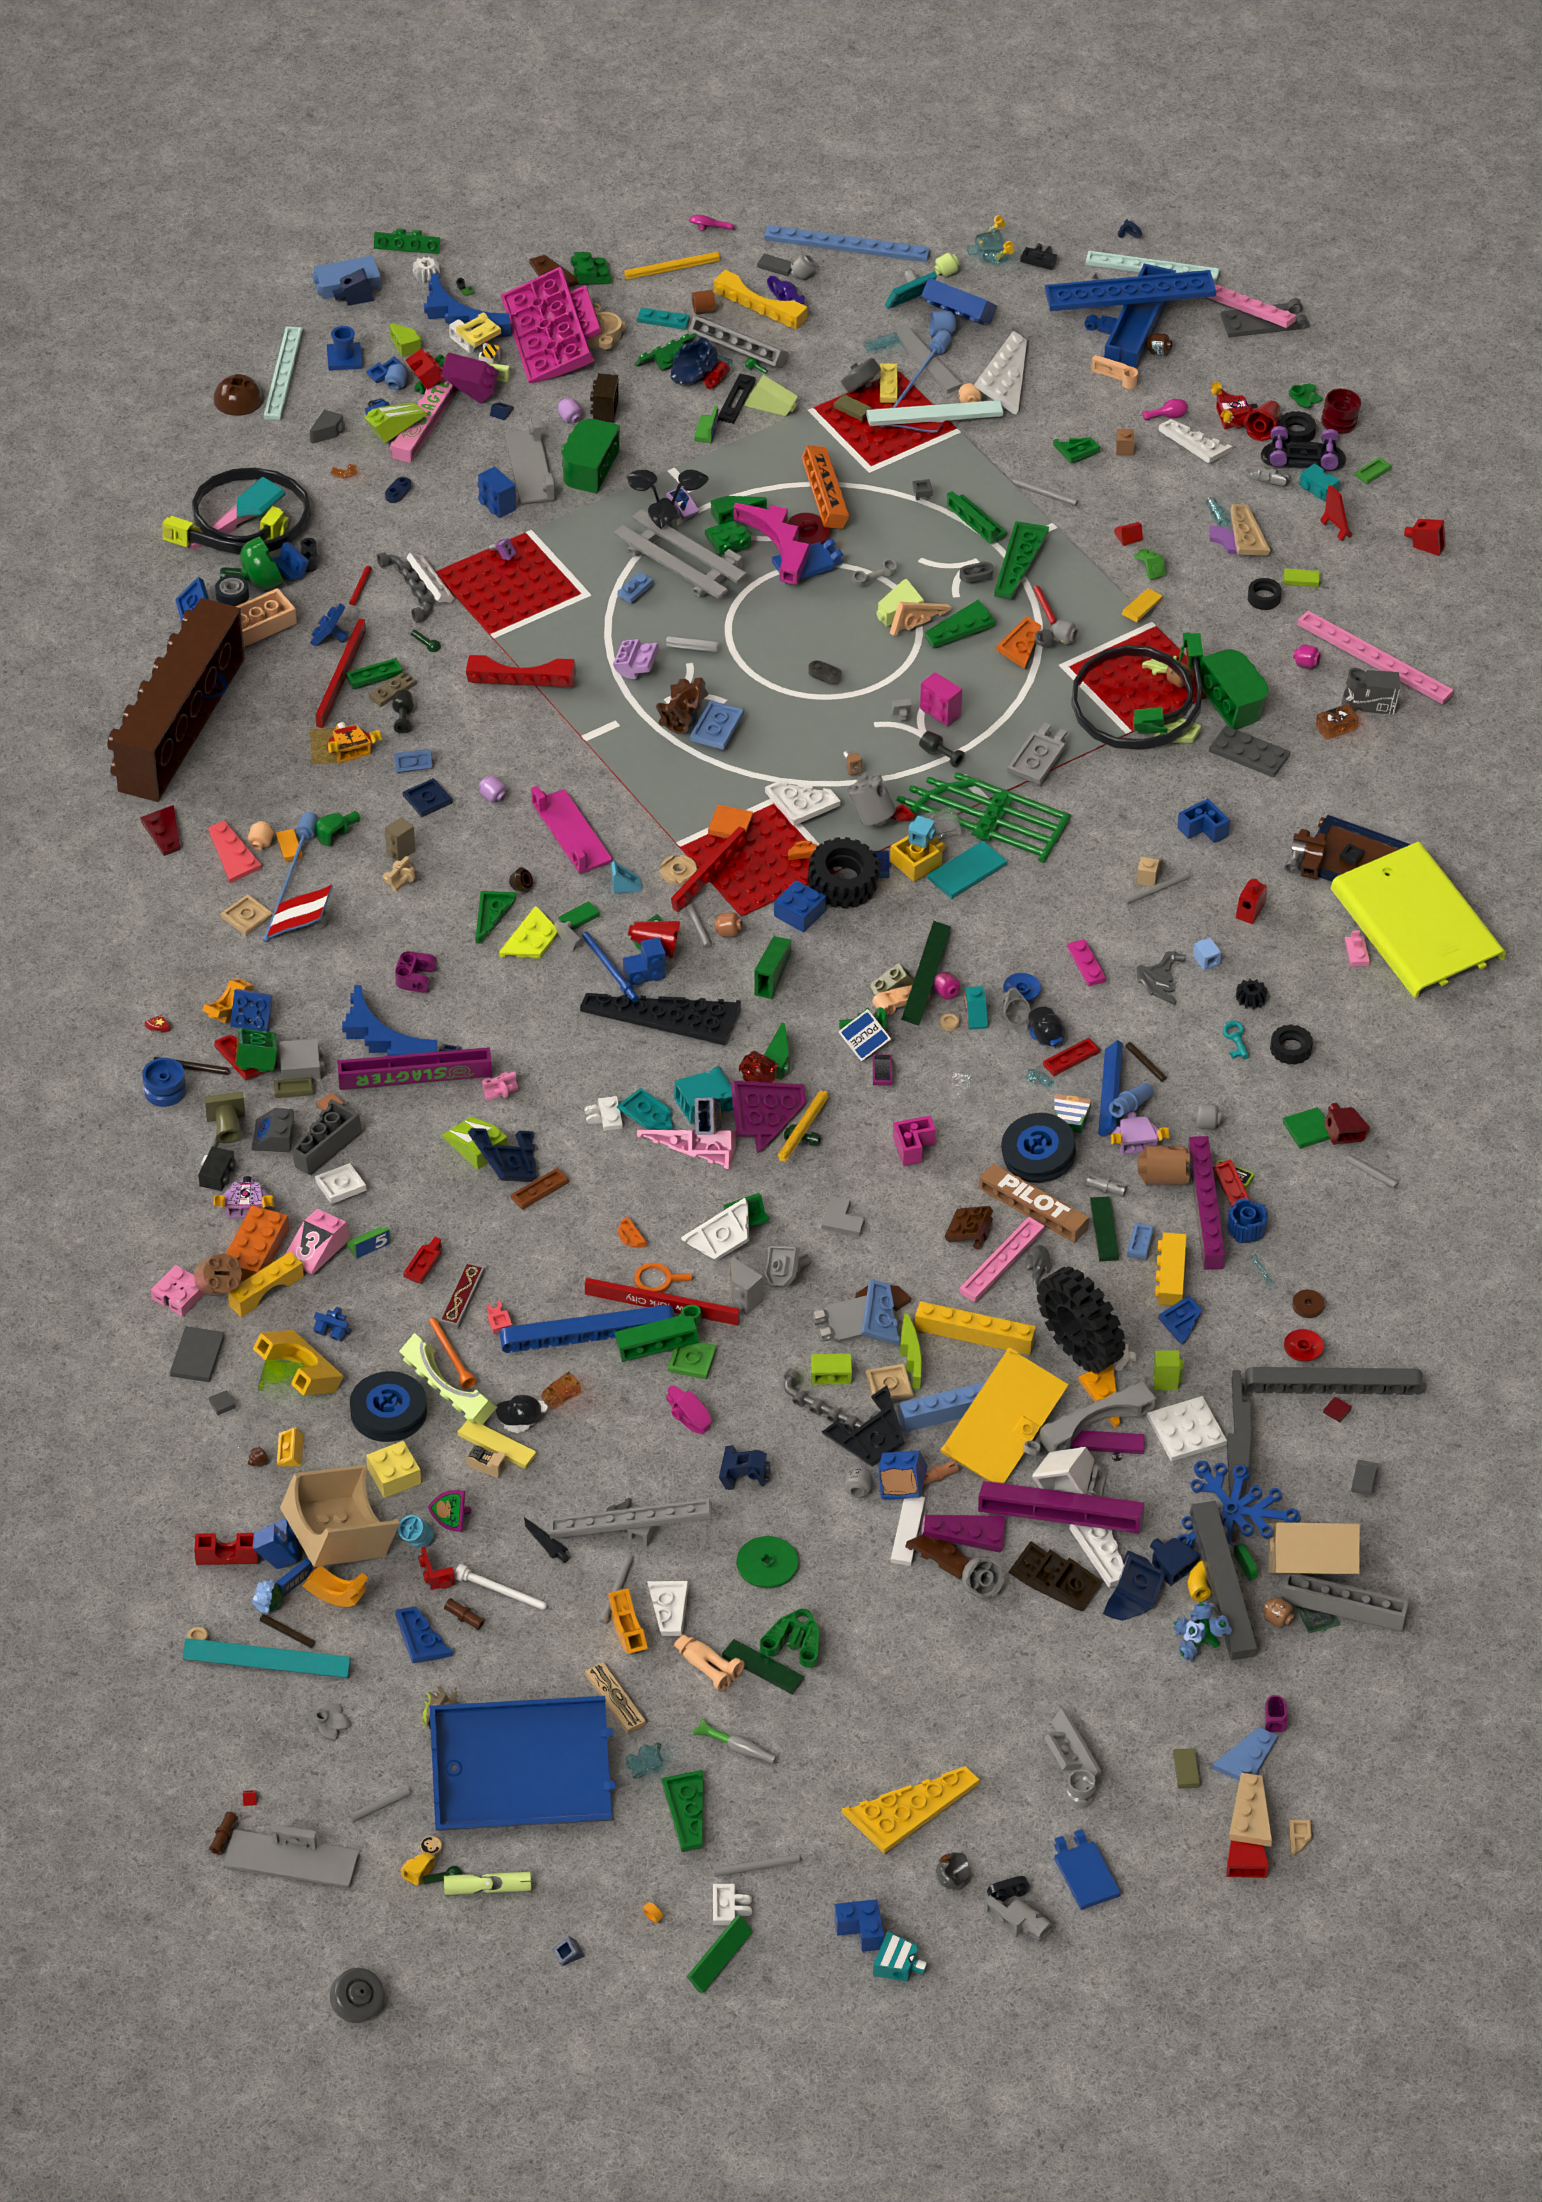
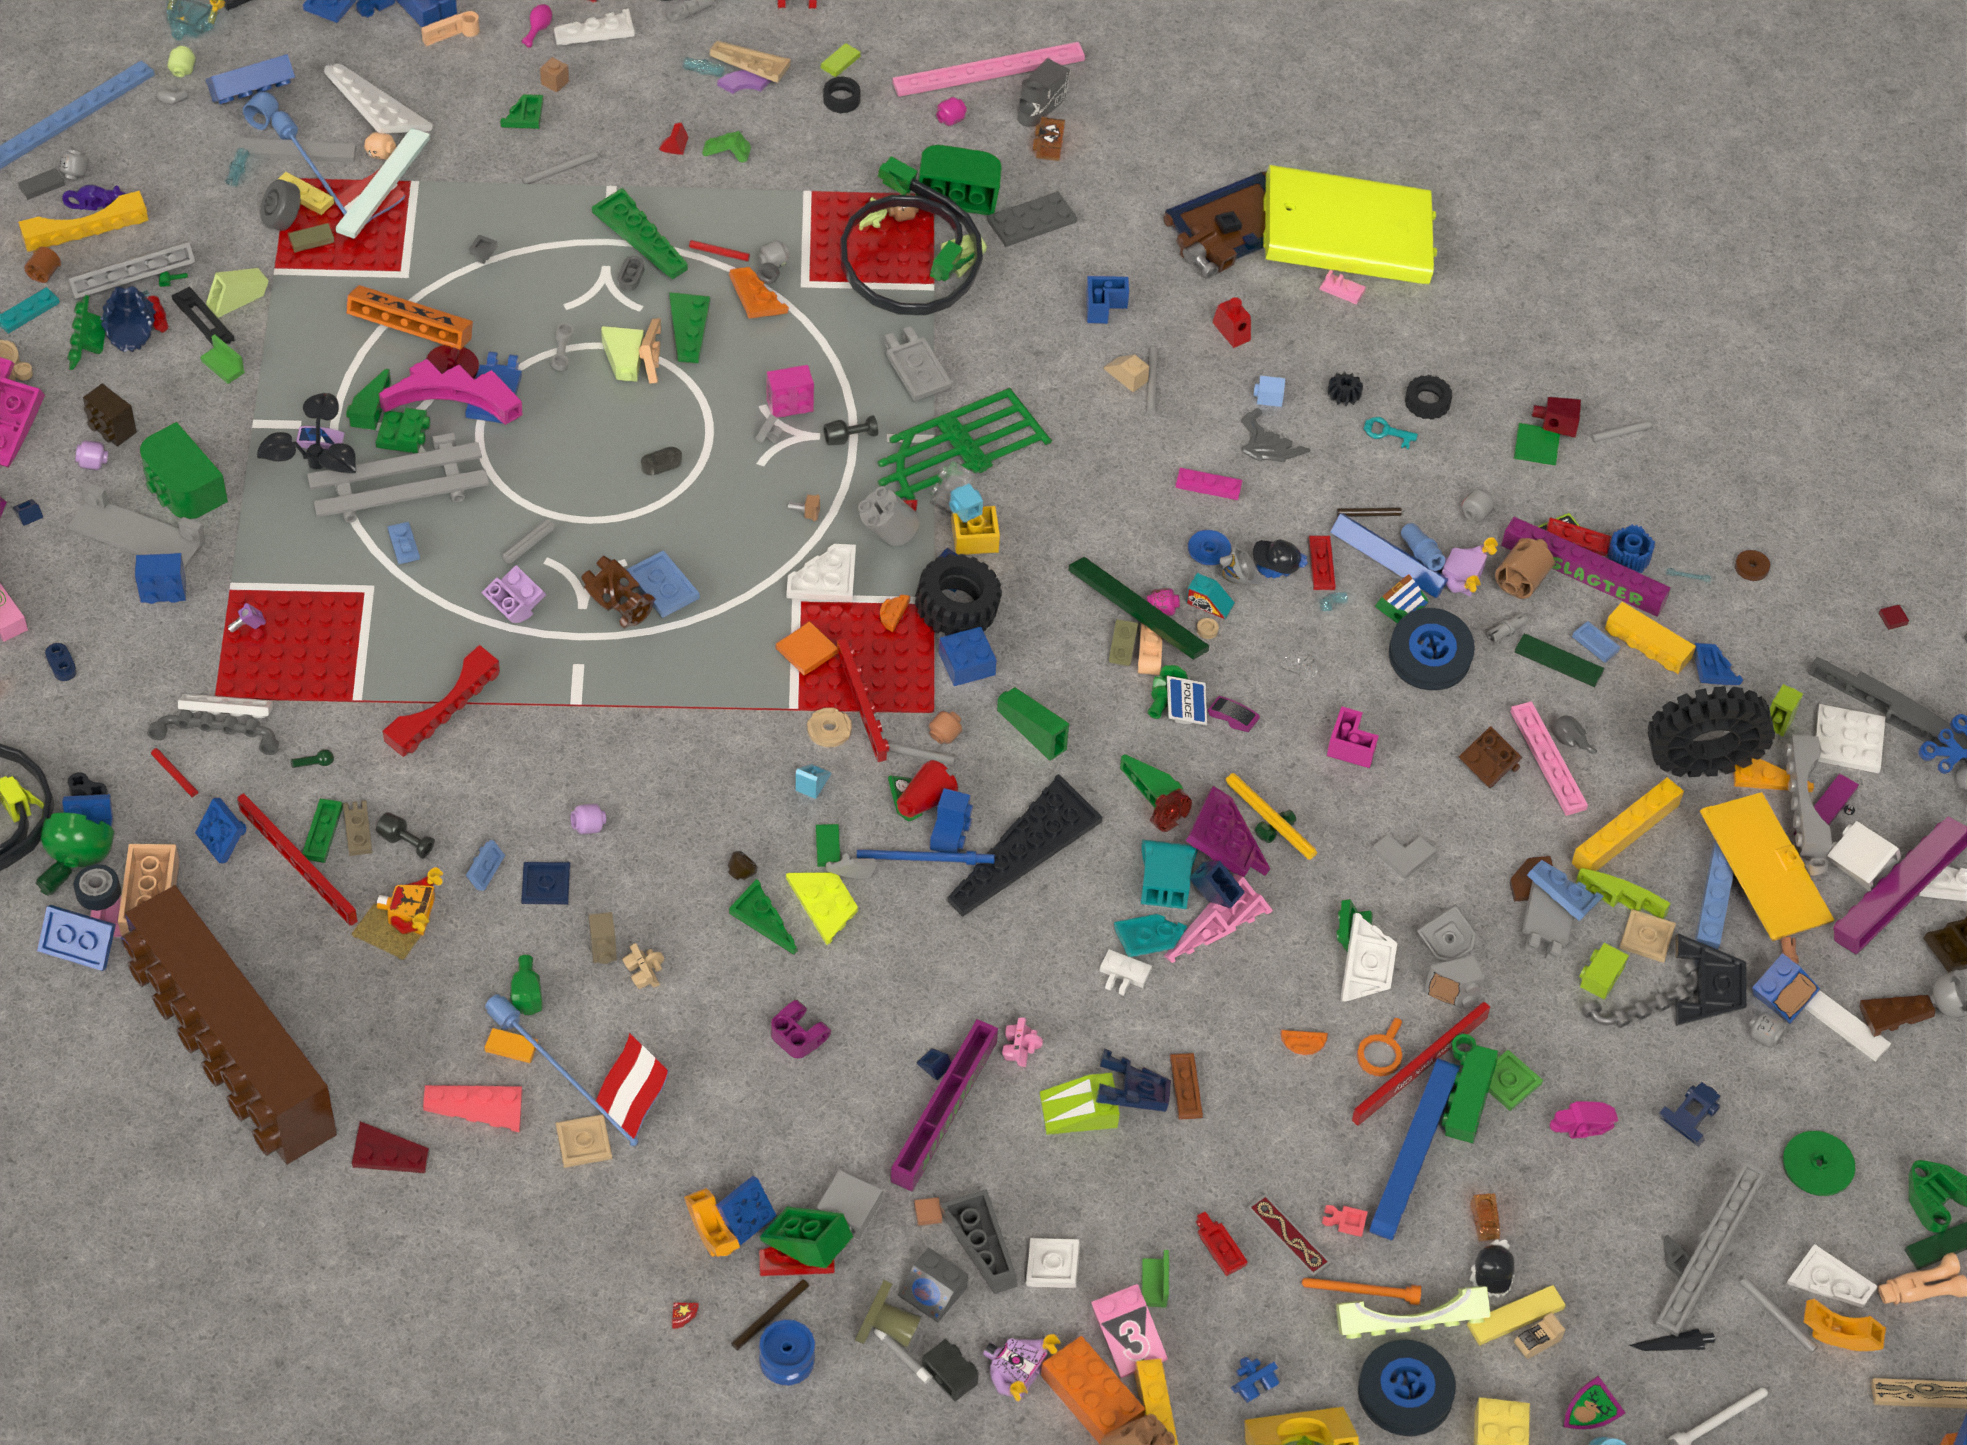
camera: 60 degrees left, 5 degrees up
(260, 835) = (480, 1063): light nougat head -> none
(293, 1087) = (877, 1233): olive tile -> none
(381, 1039) = (869, 1113): blue arch -> none
(570, 829) = (701, 785): dark pink bracket -> none
(908, 291) = (196, 104): teal tile -> none
(967, 869) = (1016, 503): teal tile -> none
(968, 1530) = (1882, 975): magenta wing -> none
(975, 517) = (554, 234): green fence -> none
(1033, 1203) = (1495, 693): medium nougat brick -> none
(1142, 605) = (781, 183): yellow tile -> none
(1305, 1339) = (1808, 589): red dish -> none
(1338, 1380) = (1862, 598): dark grey beam -> none

